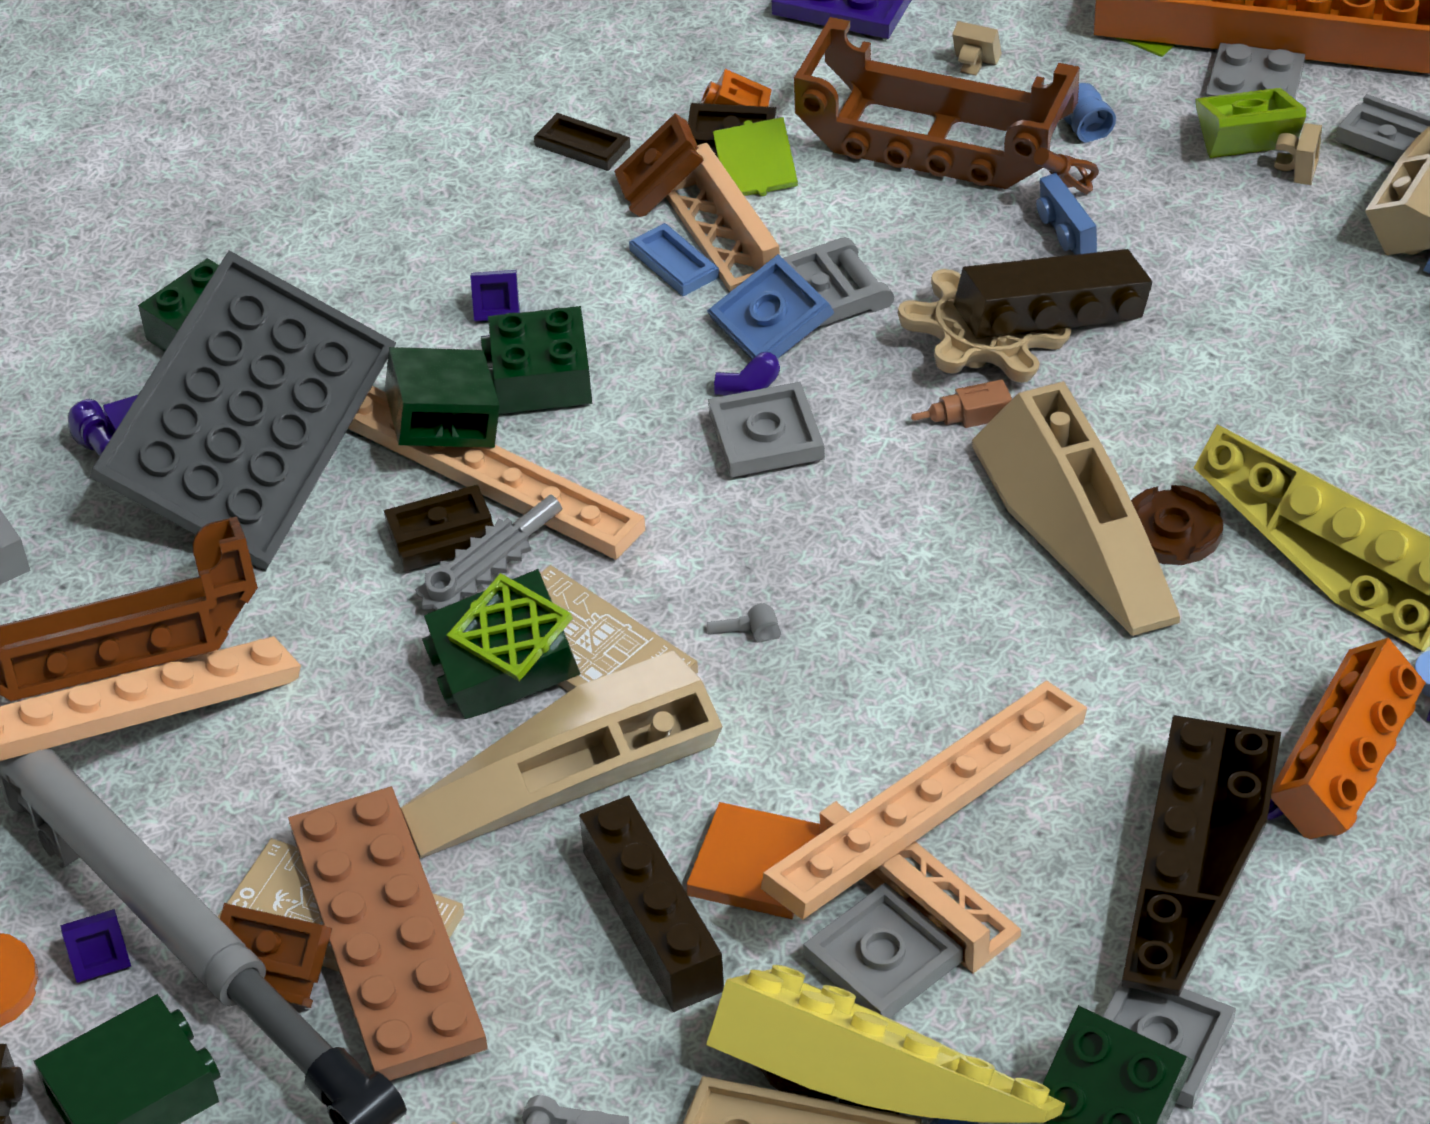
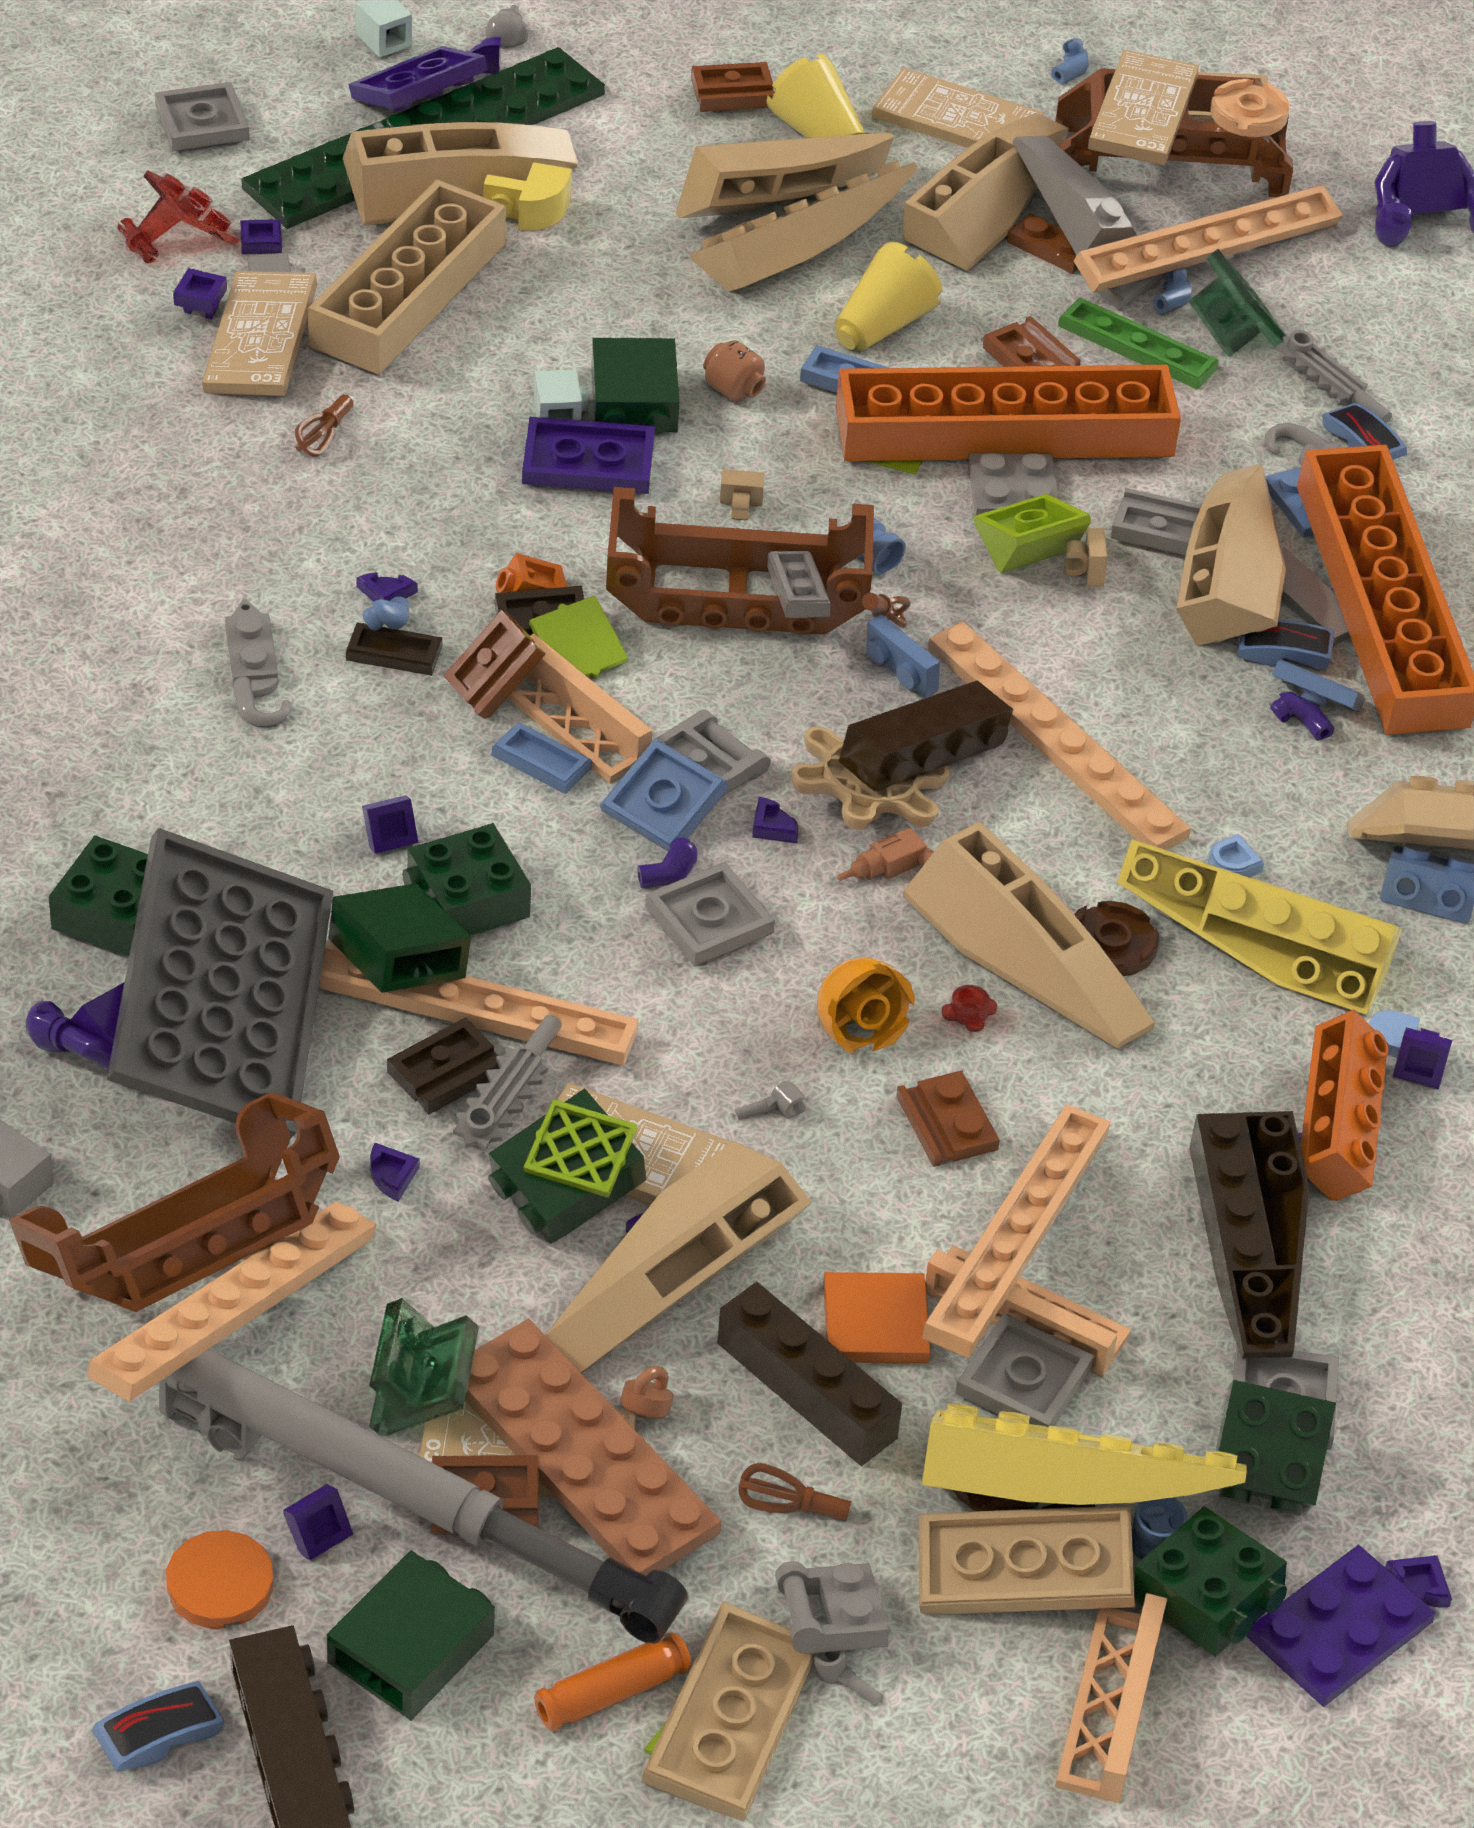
camera: 25 degrees left, 0 degrees up
(252, 809) = (419, 1368): none -> clear green bracket
(345, 617) = (392, 1170): none -> dark purple tile
(446, 135) = (253, 663): none -> light grey plate
(479, 891) = (646, 1397): none -> nougat tile
(585, 107) = (391, 613): none -> medium blue arm
(592, 1031) = (804, 1498): none -> dark orange piece
(600, 89) = (386, 587): none -> dark purple tile
(871, 354) = (774, 823): none -> dark purple tile
(878, 533) = (870, 995): none -> light orange cylinder
(921, 673) = (948, 1118): none -> dark orange plate
(983, 134) = (798, 584): none -> light grey tile
(991, 565) = (970, 997): none -> clear red plate
(1203, 324) = (1061, 739): none -> light nougat plate
(1339, 466) = (1235, 856): none -> light blue tile

